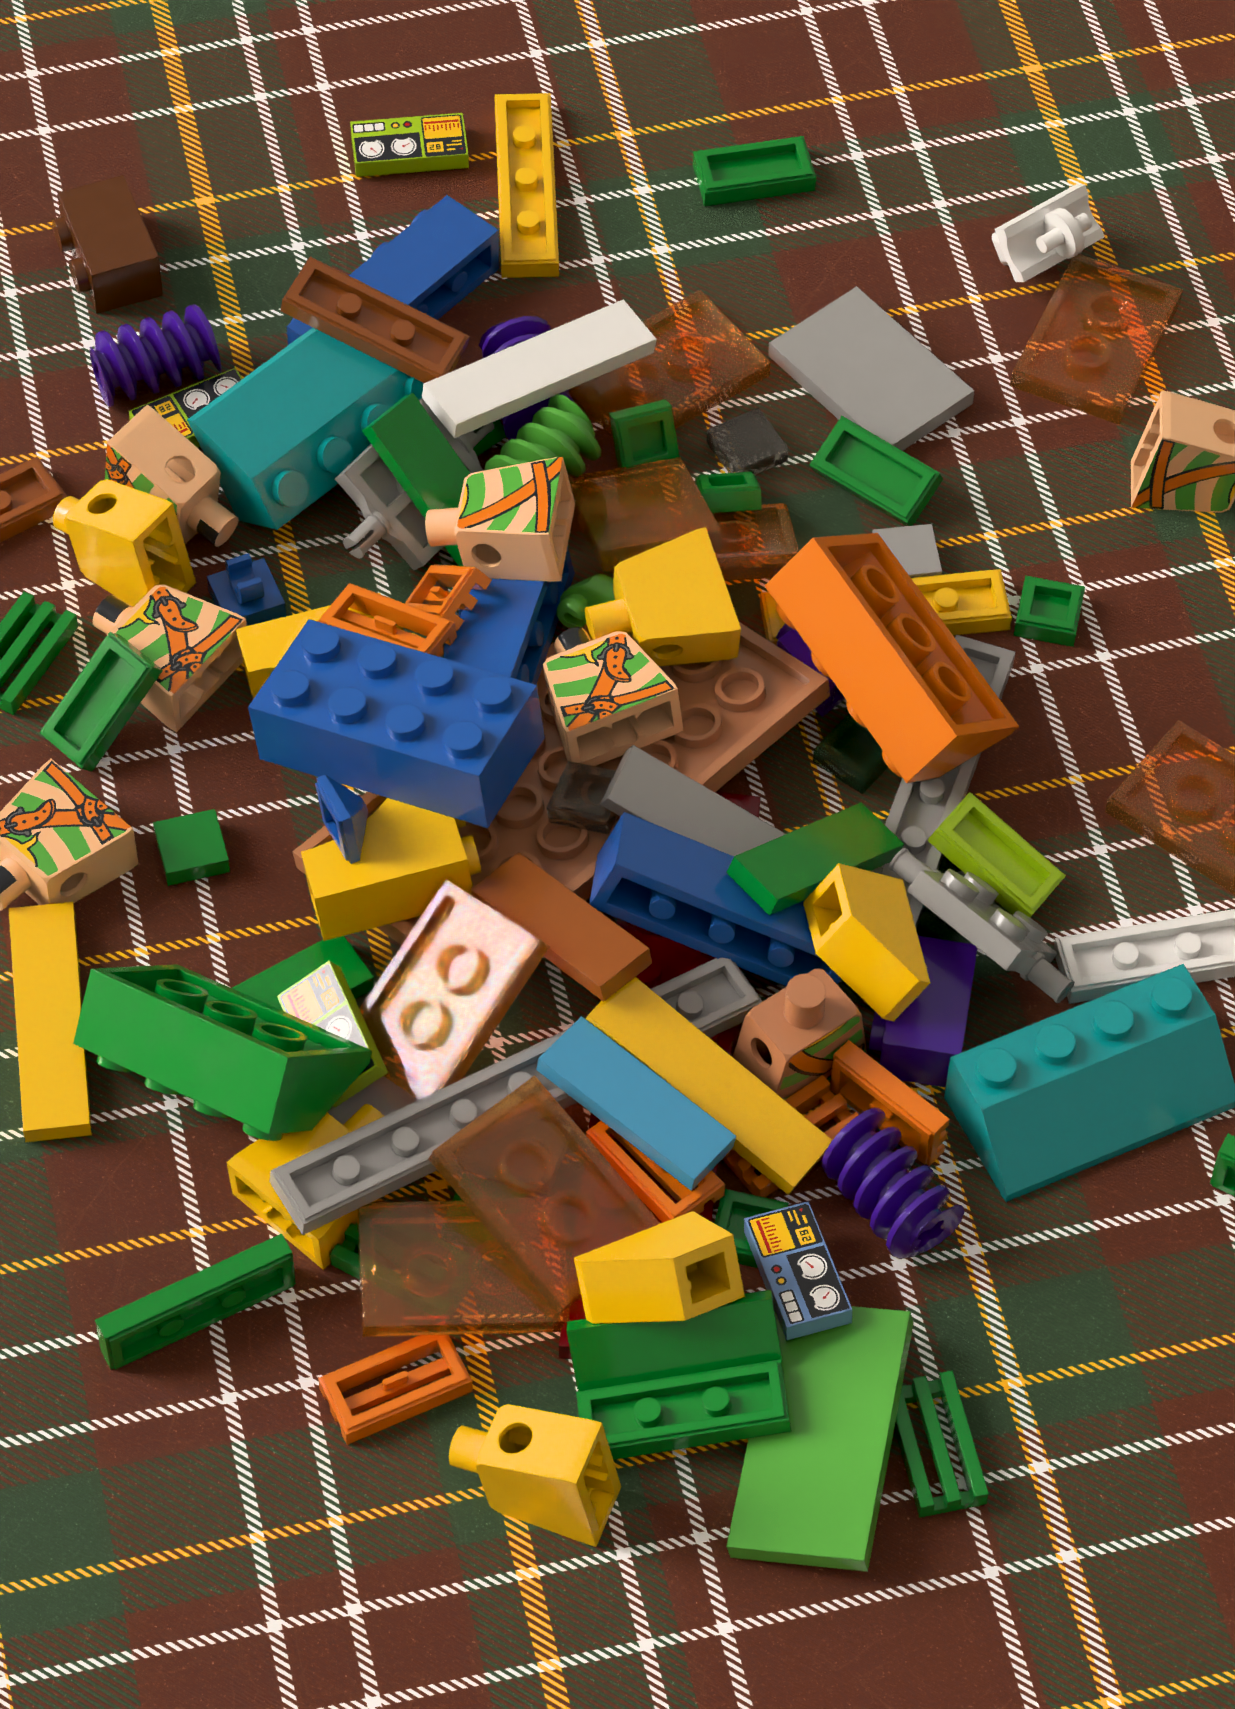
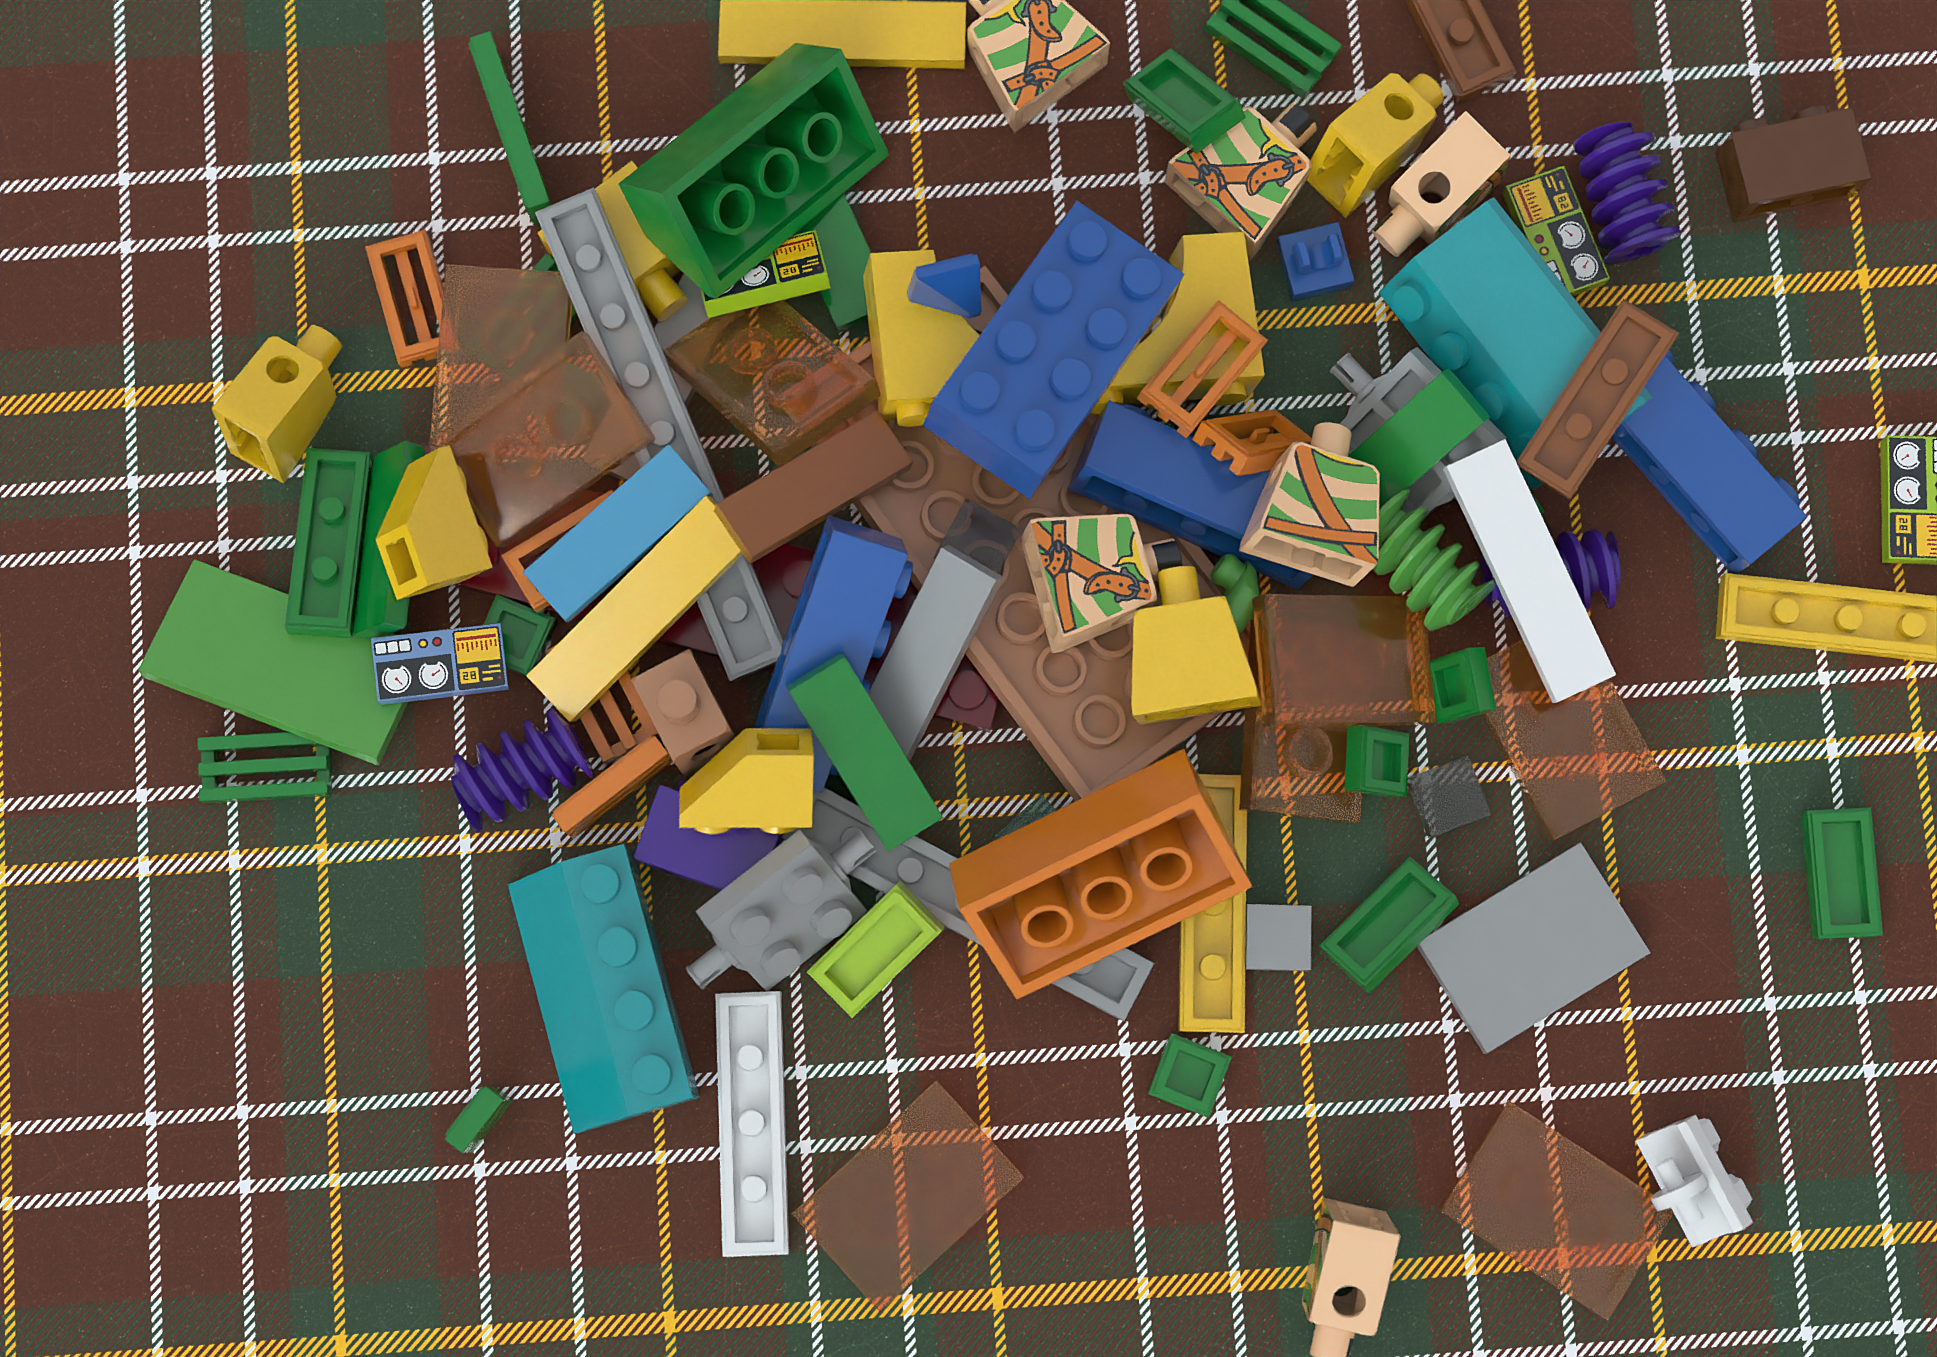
camera: 100 degrees right, 25 degrees up
(191, 847) = (1017, 178): green tile -> none

